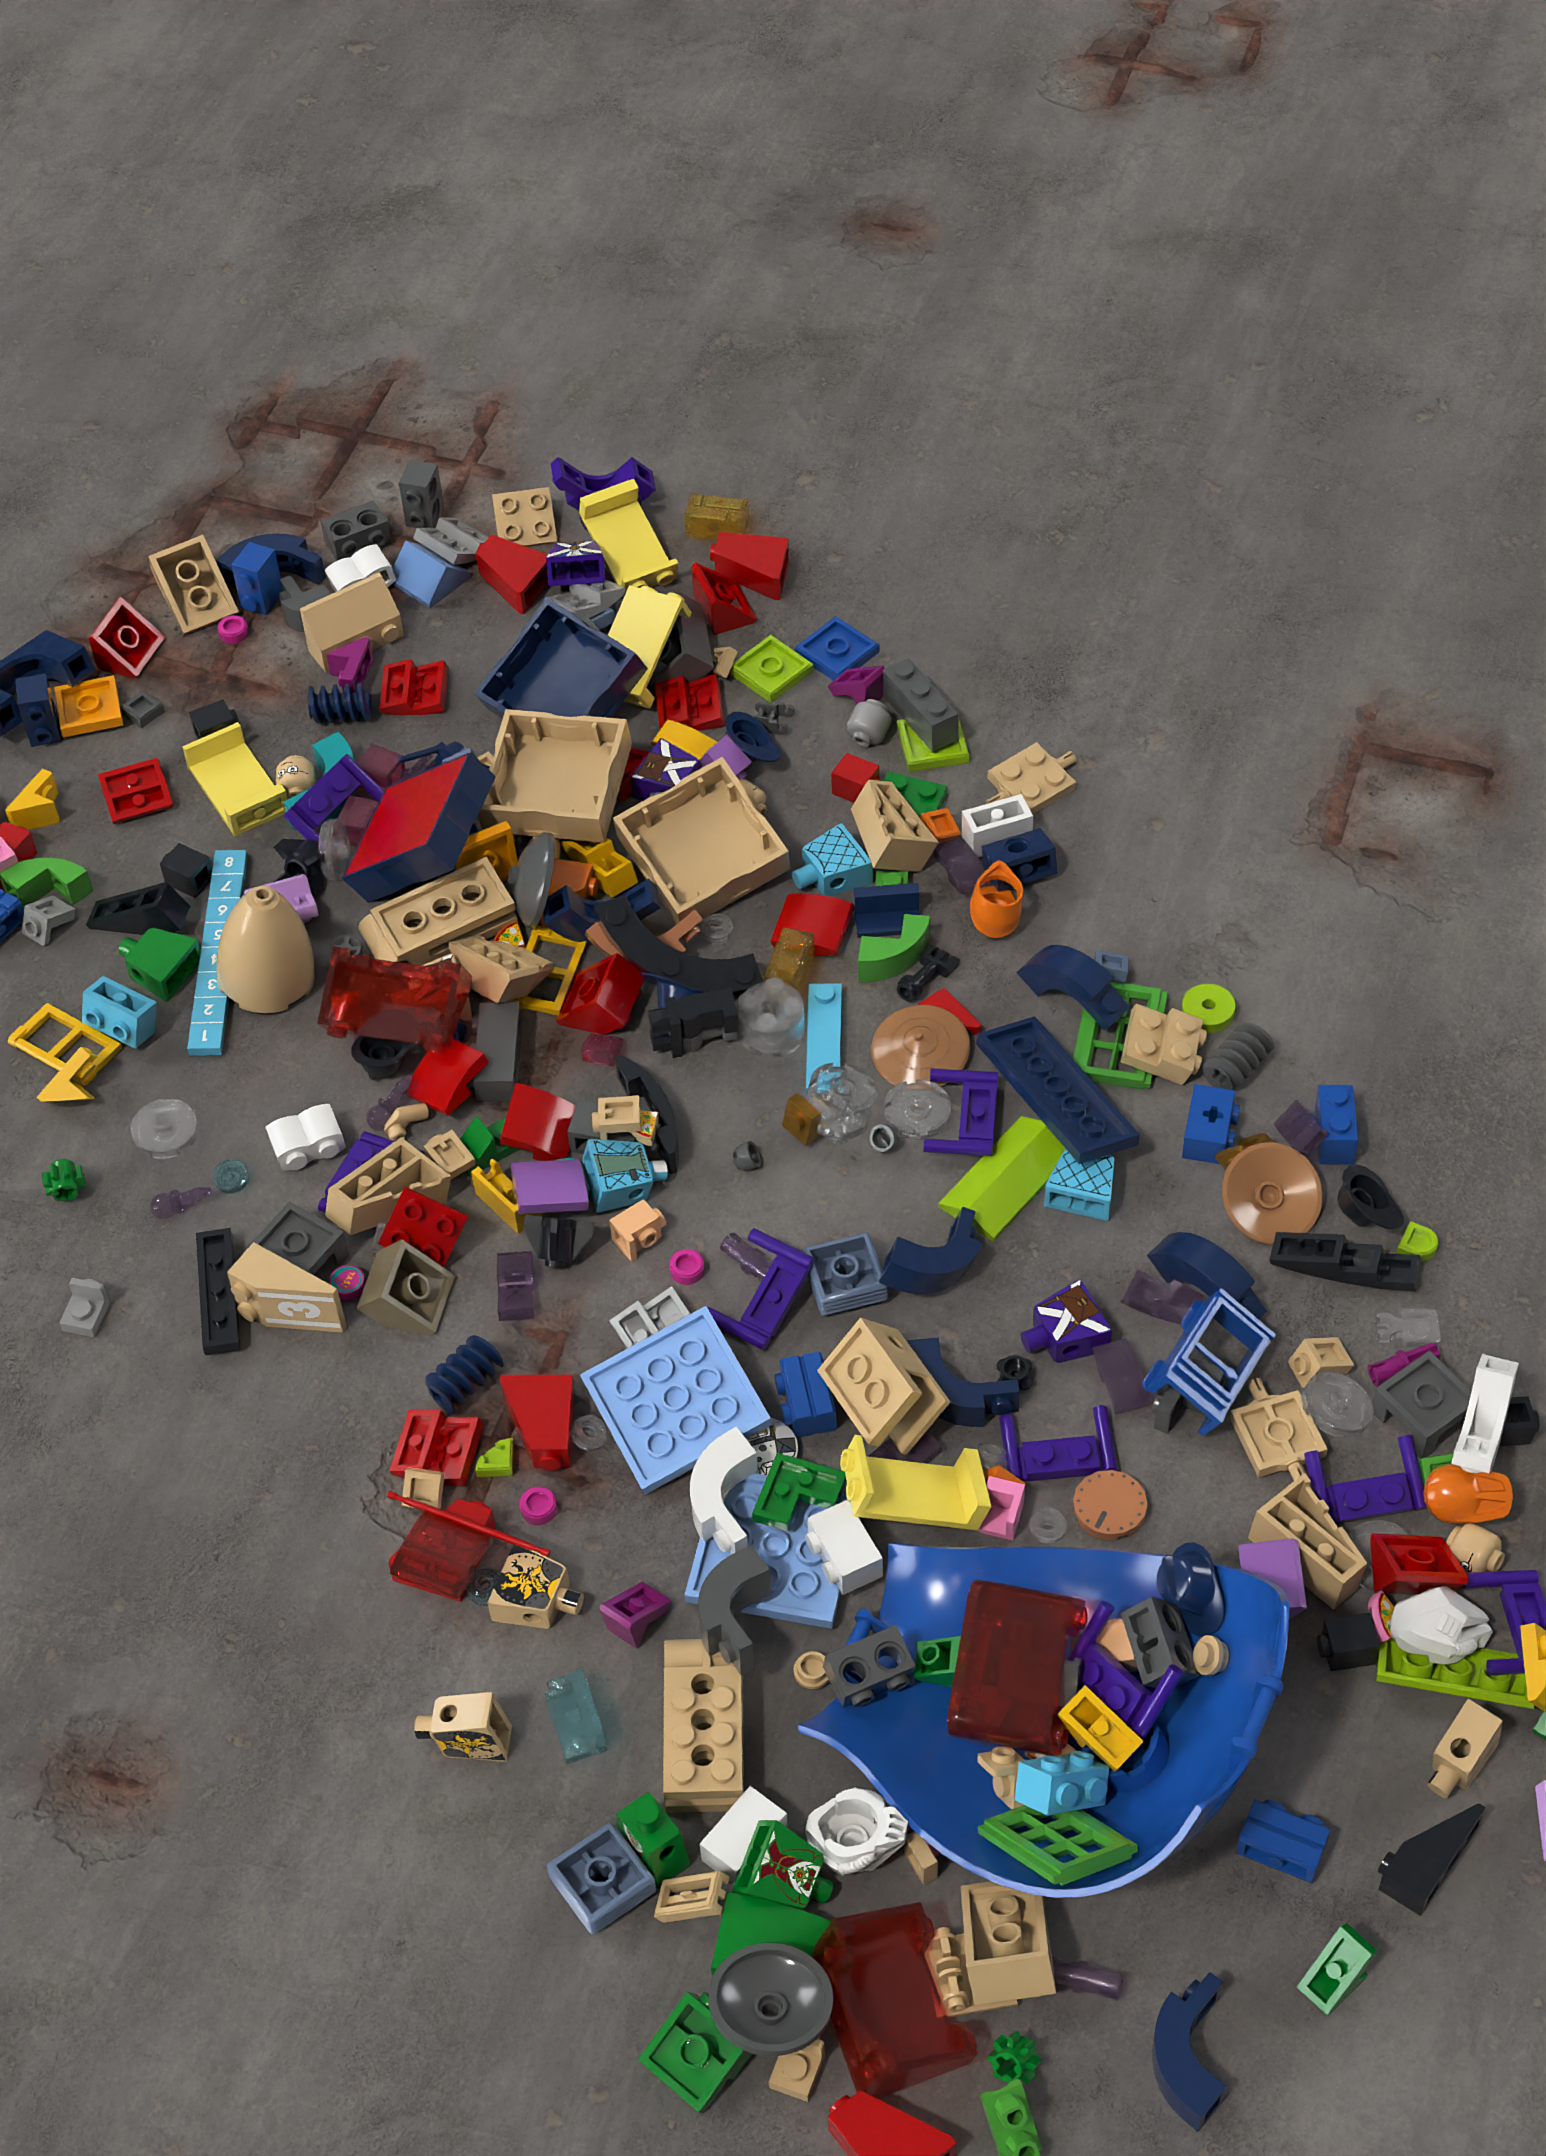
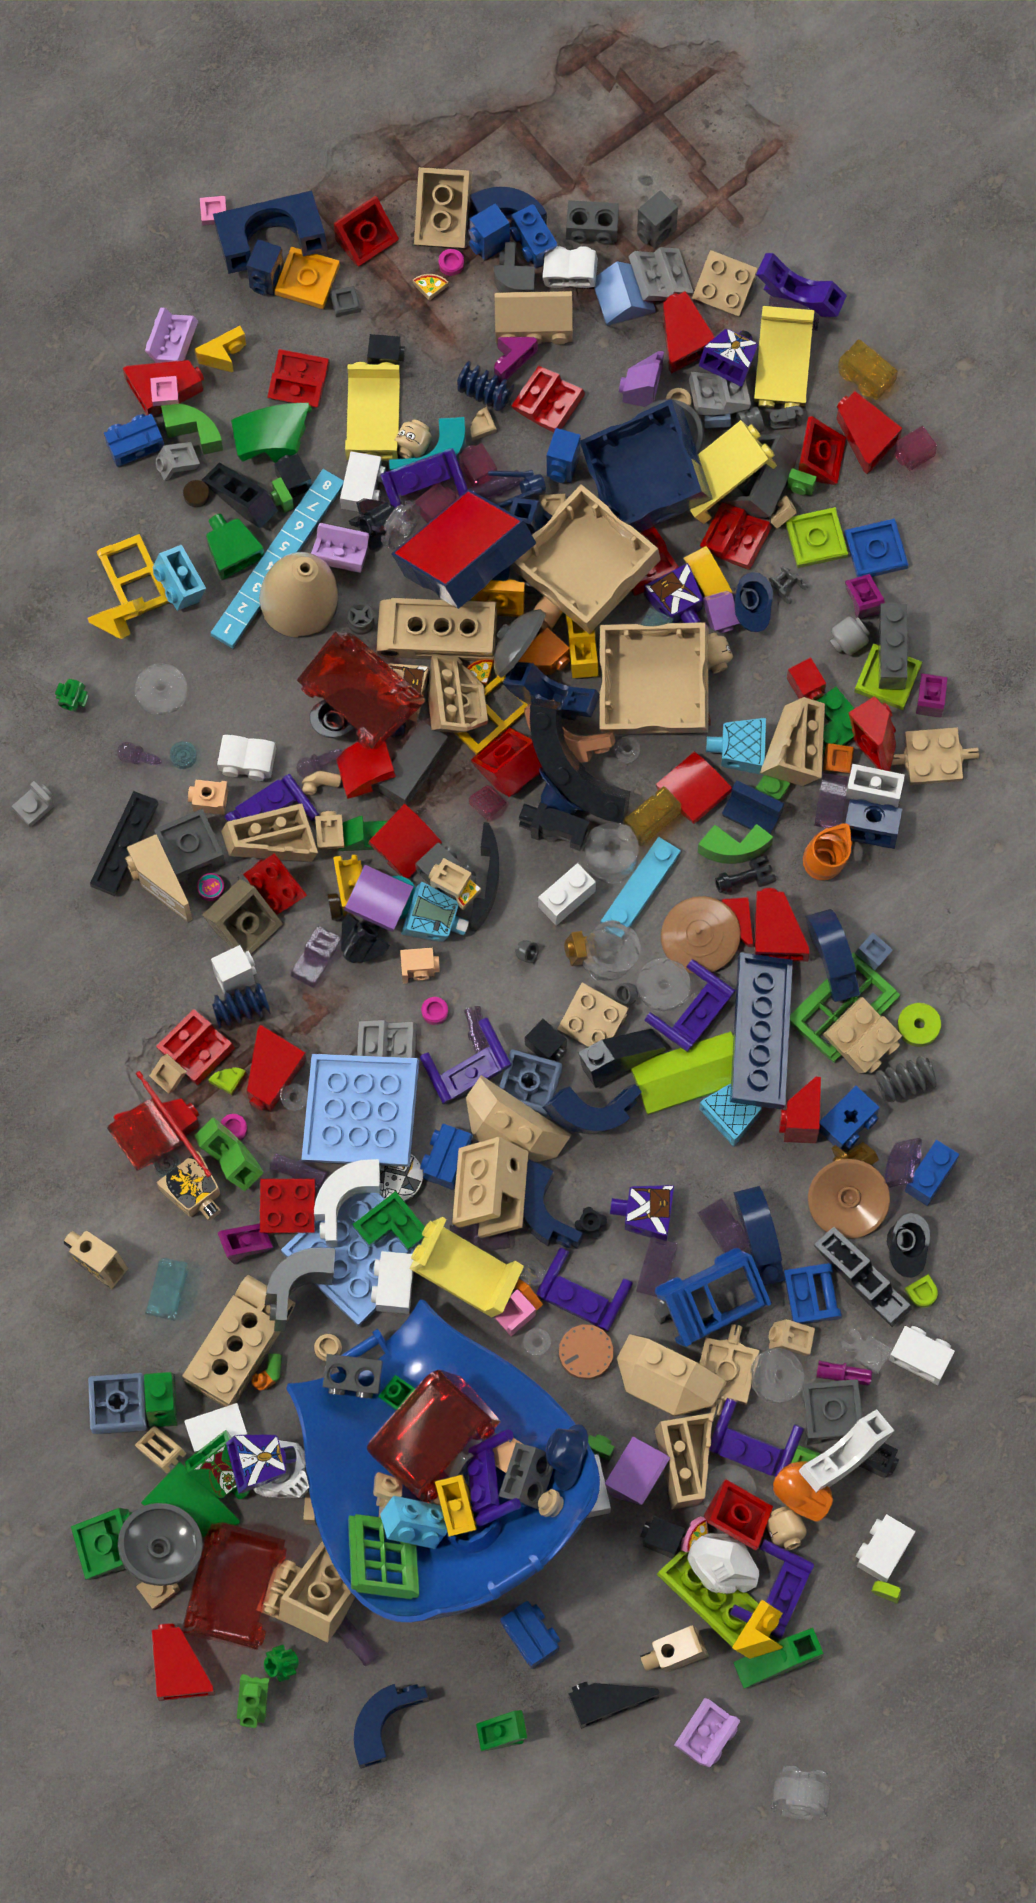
camera: 30 degrees right, 20 degrees up
(88, 938) = (196, 493): none -> dark brown tile
(140, 837) = (270, 430): none -> green slope
(188, 889) = (281, 495): none -> bright green plate
(223, 655) = (430, 285): none -> tile
(261, 832) = (361, 480): none -> white brick
(287, 1188) = (212, 804): none -> light nougat brick
(304, 563) = (532, 234): none -> blue bracket
(360, 738) = (482, 424): none -> tan tile
(430, 1336) = (234, 970): none -> white brick
(465, 712) = (563, 455): none -> blue brick
(501, 623) = (642, 381): none -> medium lavender slope
(503, 1224) = (334, 905): none -> dark brown tile
(554, 1528) = (235, 1159): none -> bright green brick
(645, 1504) = (297, 1170): none -> clear purple pin
(659, 1544) = (287, 1205): none -> red hinge
(668, 579) = (785, 418): none -> dark grey piece
(722, 629) = (801, 482): none -> bright green plate
(752, 1080) = (566, 894): none -> white brick
(765, 1740) = (269, 1376): none -> arm
(812, 553) = (915, 448): none -> clear pink brick
(826, 1820) = (258, 1460): none -> torso
(828, 1314) = (500, 1114): none -> tan wedge
(832, 1222) = (546, 1041): none -> black brick
(867, 1178) = (592, 1016): none -> tan hinge
(919, 1198) = (618, 1055): none -> black slope
(959, 776) = (874, 732): none -> red slope
(993, 732) = (931, 695): none -> magenta slope
(997, 995) = (777, 928): none -> red slope
(1165, 1140) = (802, 1114): none -> red slope
(1220, 1469) = (666, 1377): none -> tan wedge
(1299, 1313) = (803, 1295): none -> blue plate
(1471, 1298) = (922, 1354): none -> white brick

